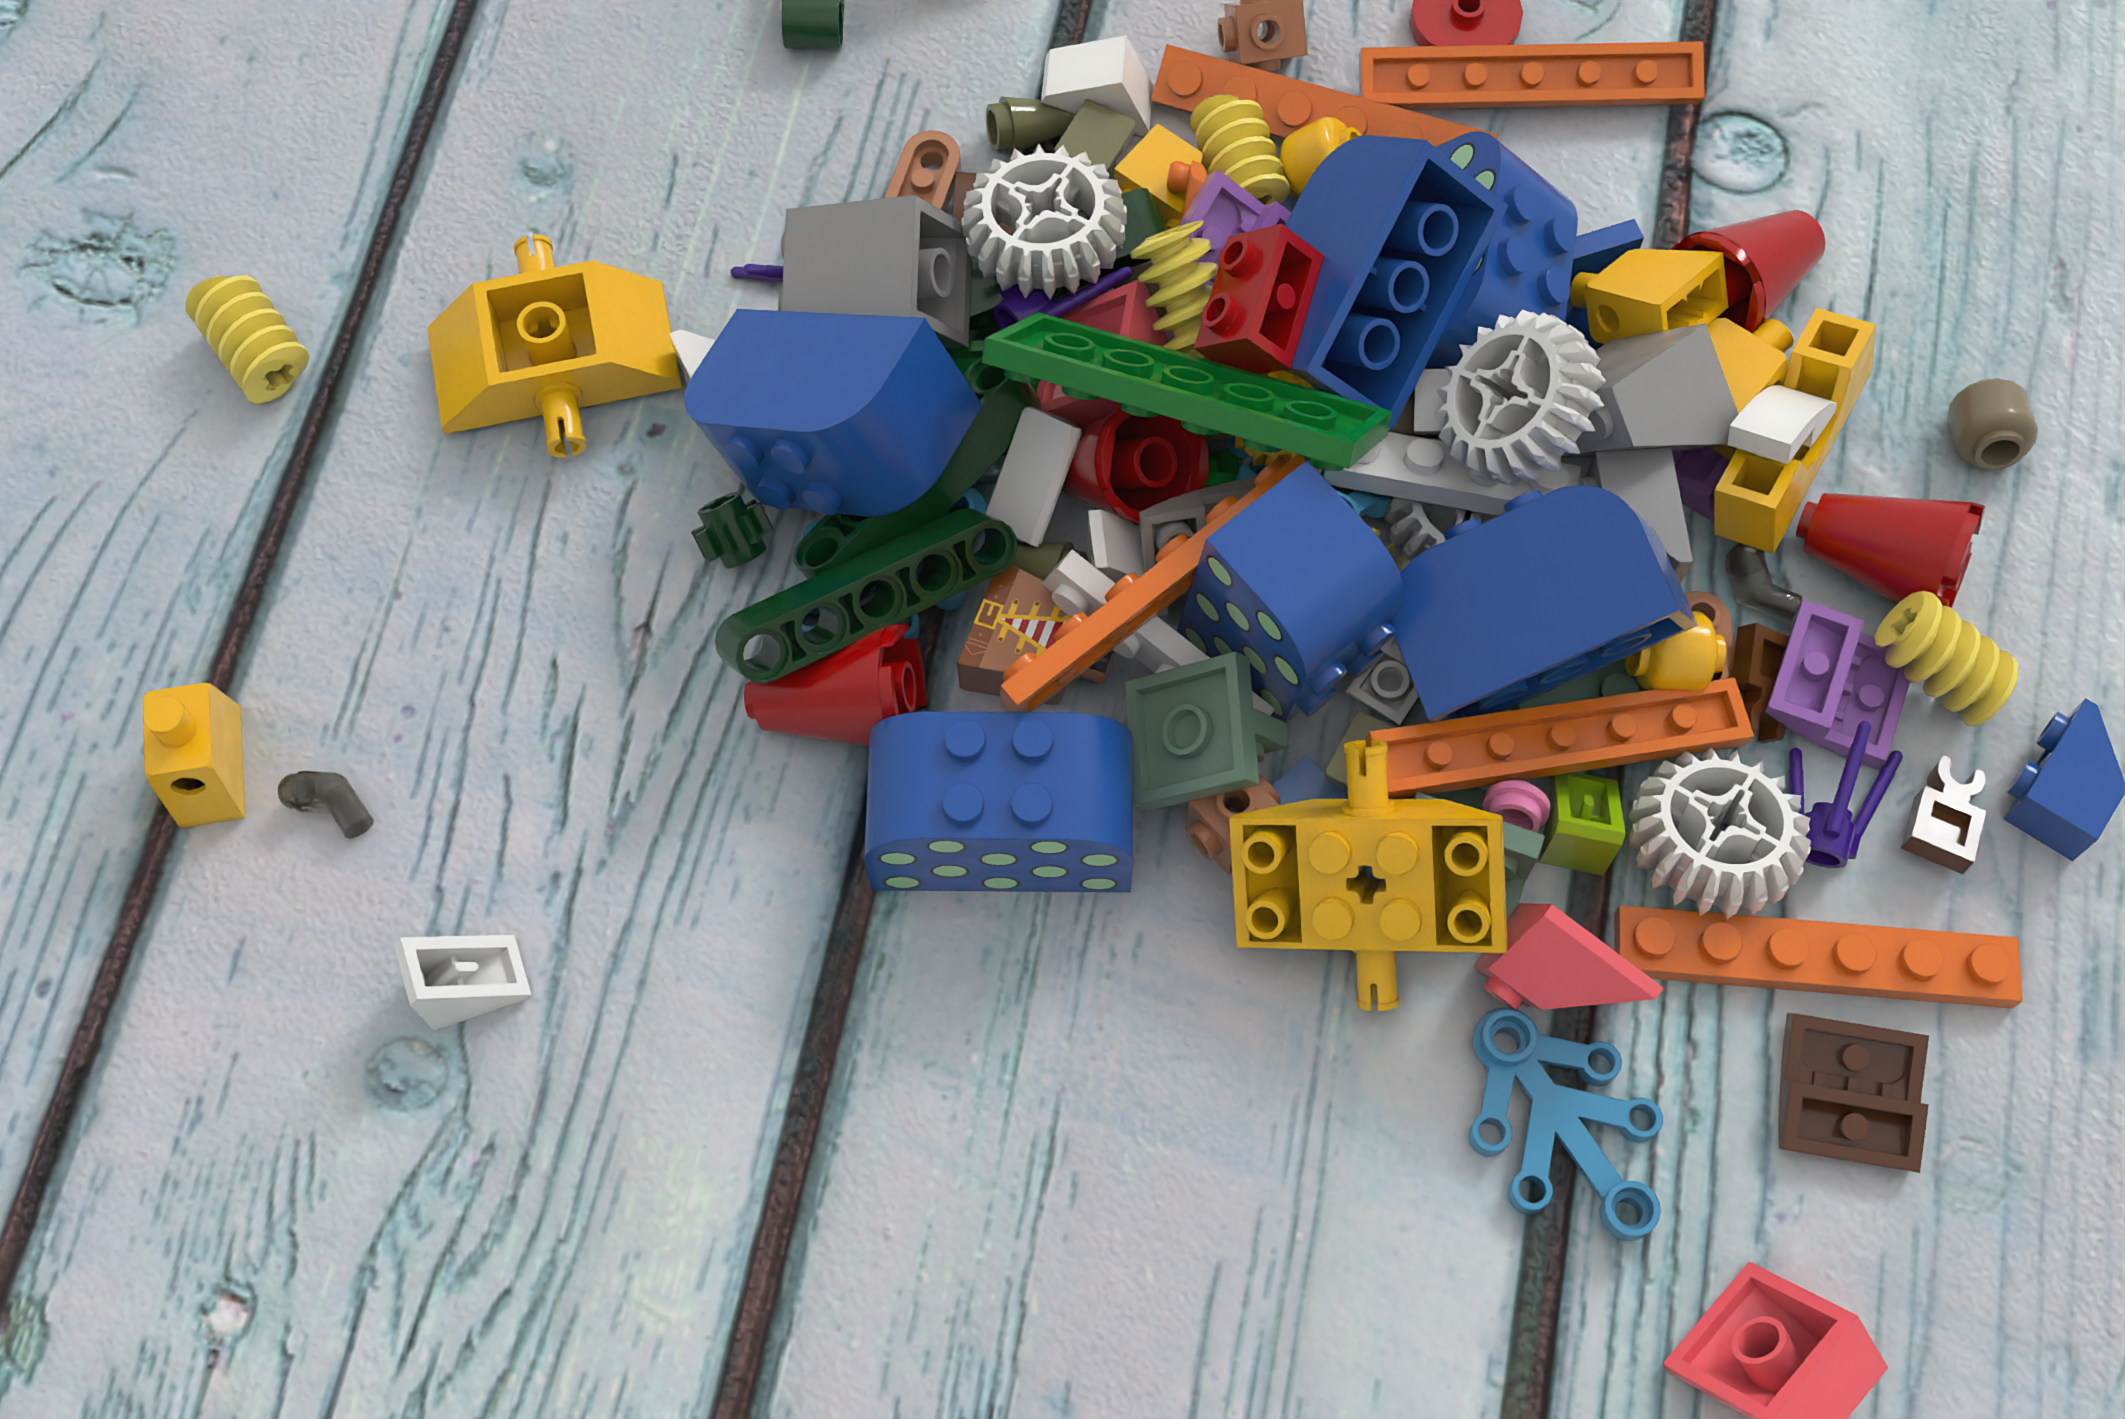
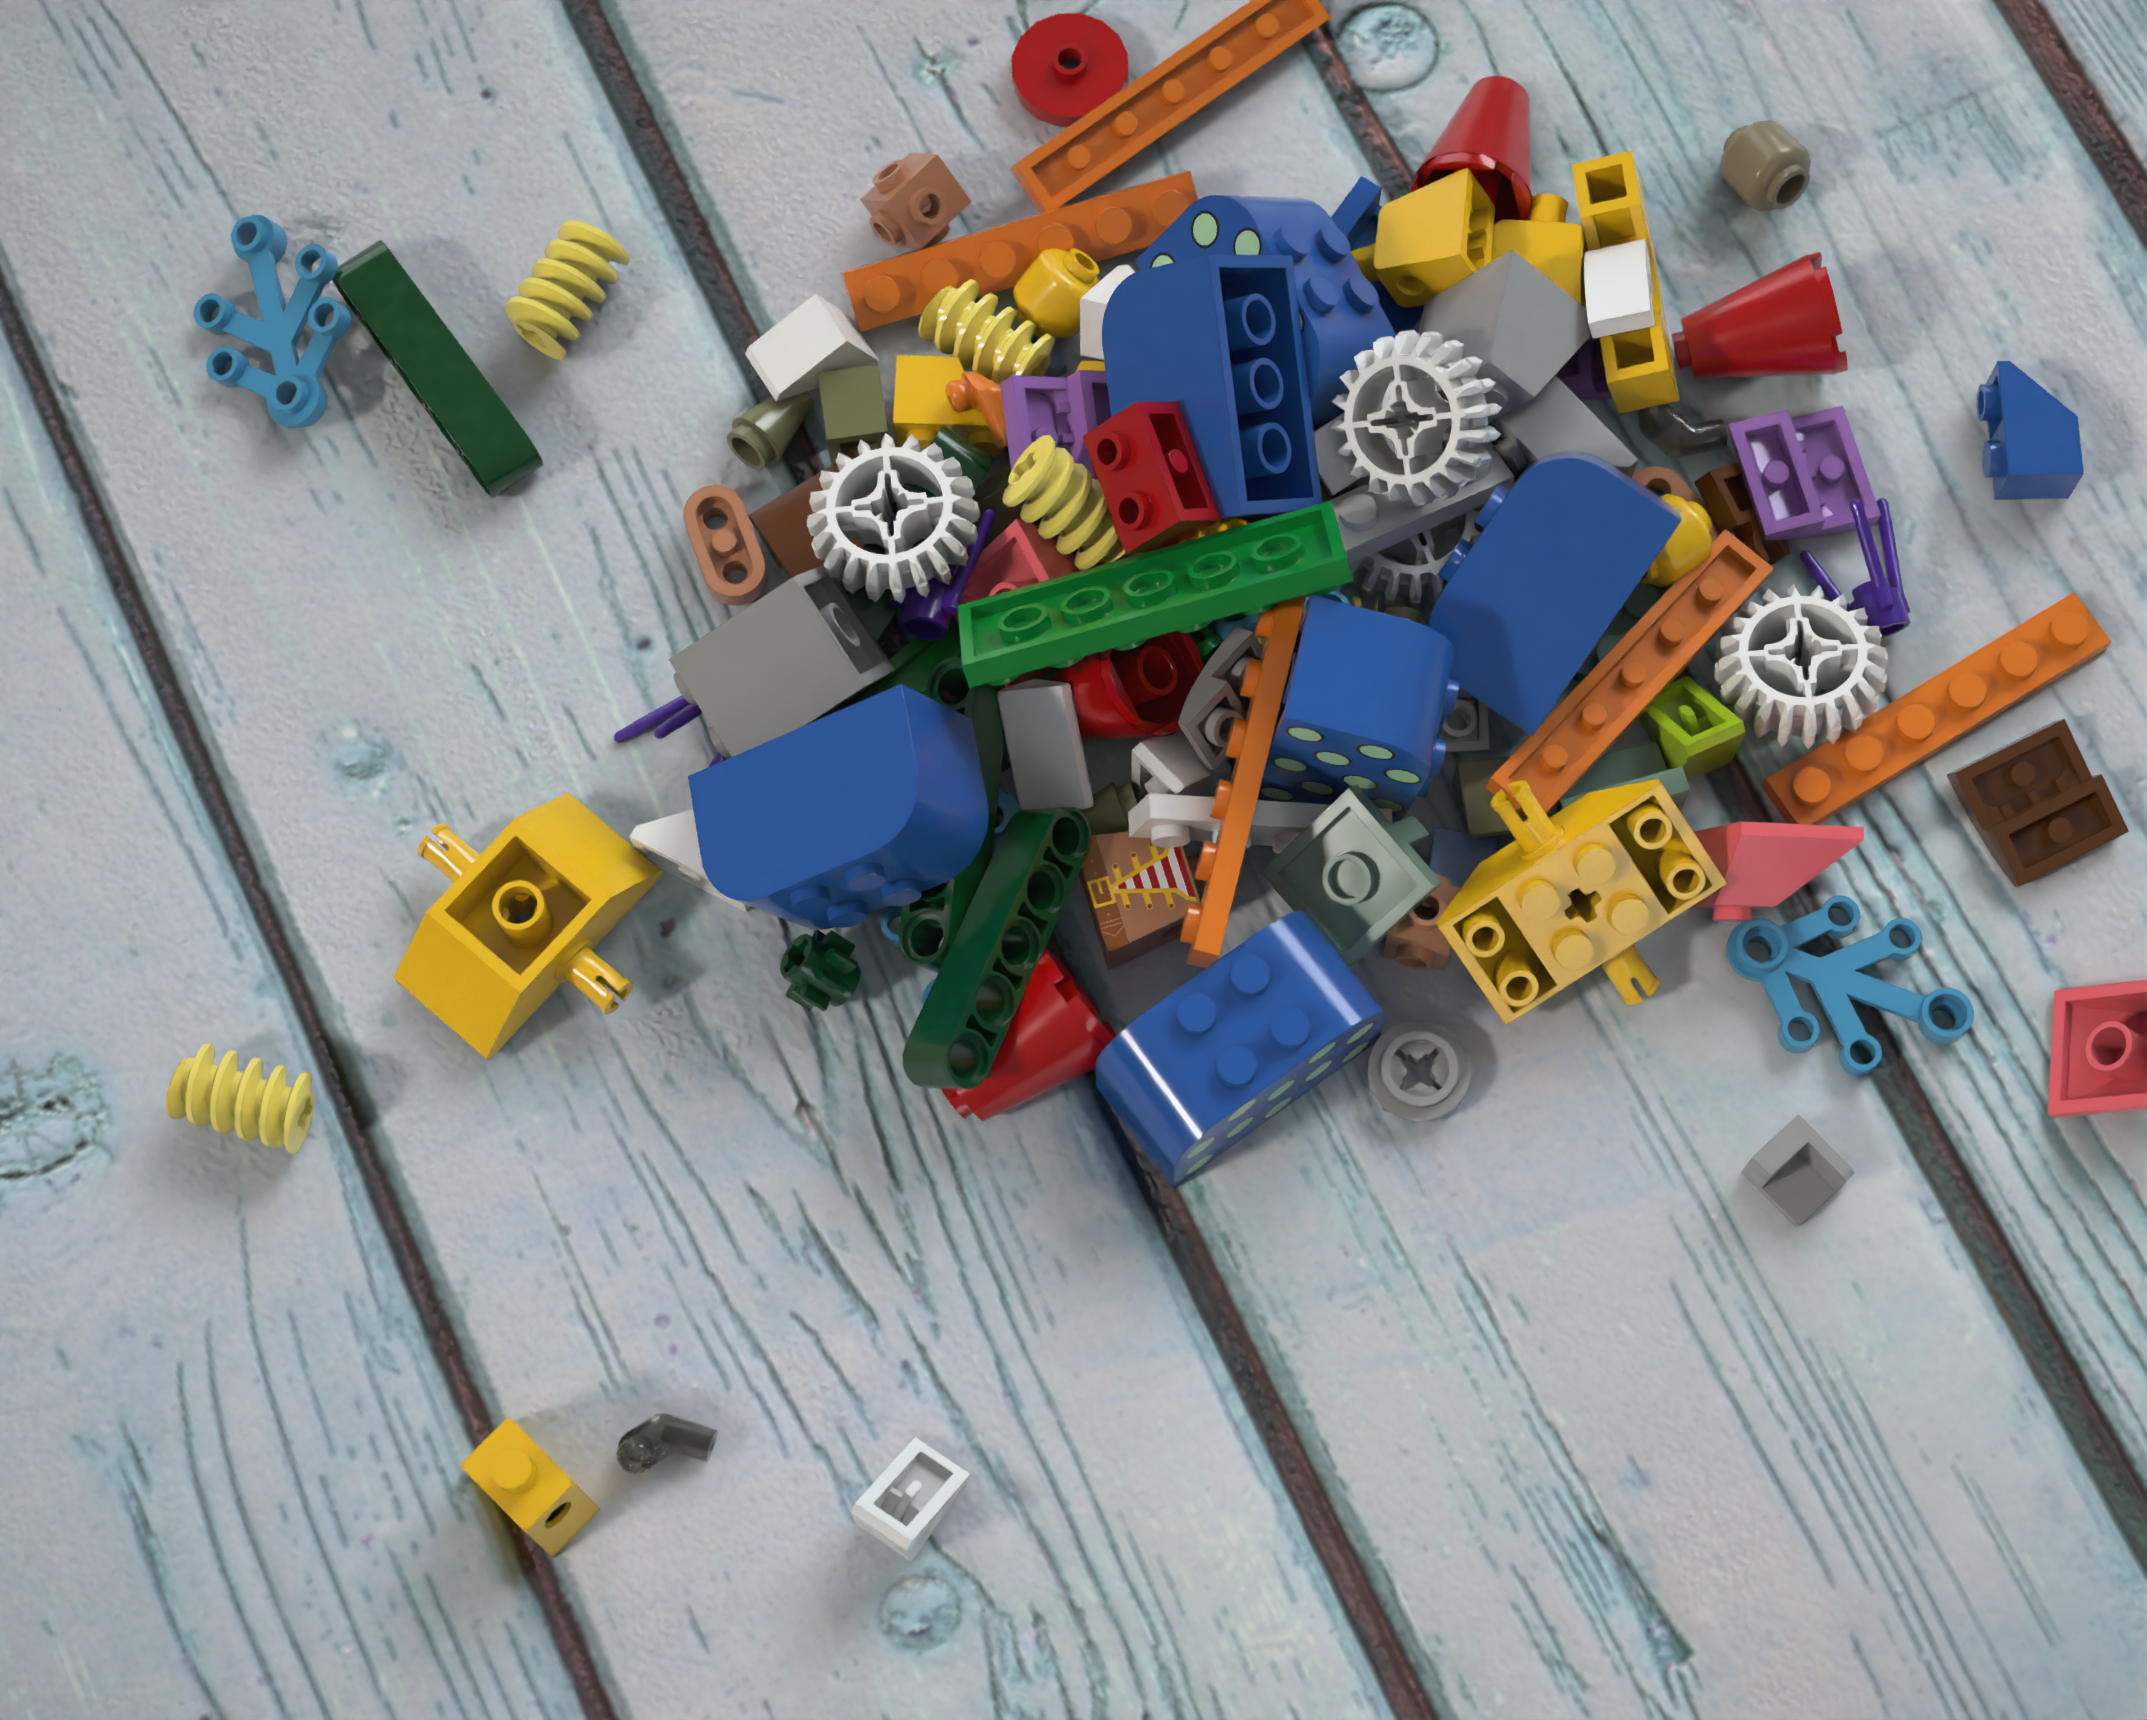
camera: 35 degrees left, 5 degrees up
(1157, 914) = (1416, 1042): none -> light grey gear
(1395, 1247) = (1797, 1171): none -> light grey panel
(1518, 804) = (1638, 755): bright pink plate -> none
(1943, 821) = (1956, 536): plate -> none
(1948, 657) = (1872, 398): light yellow piece -> none

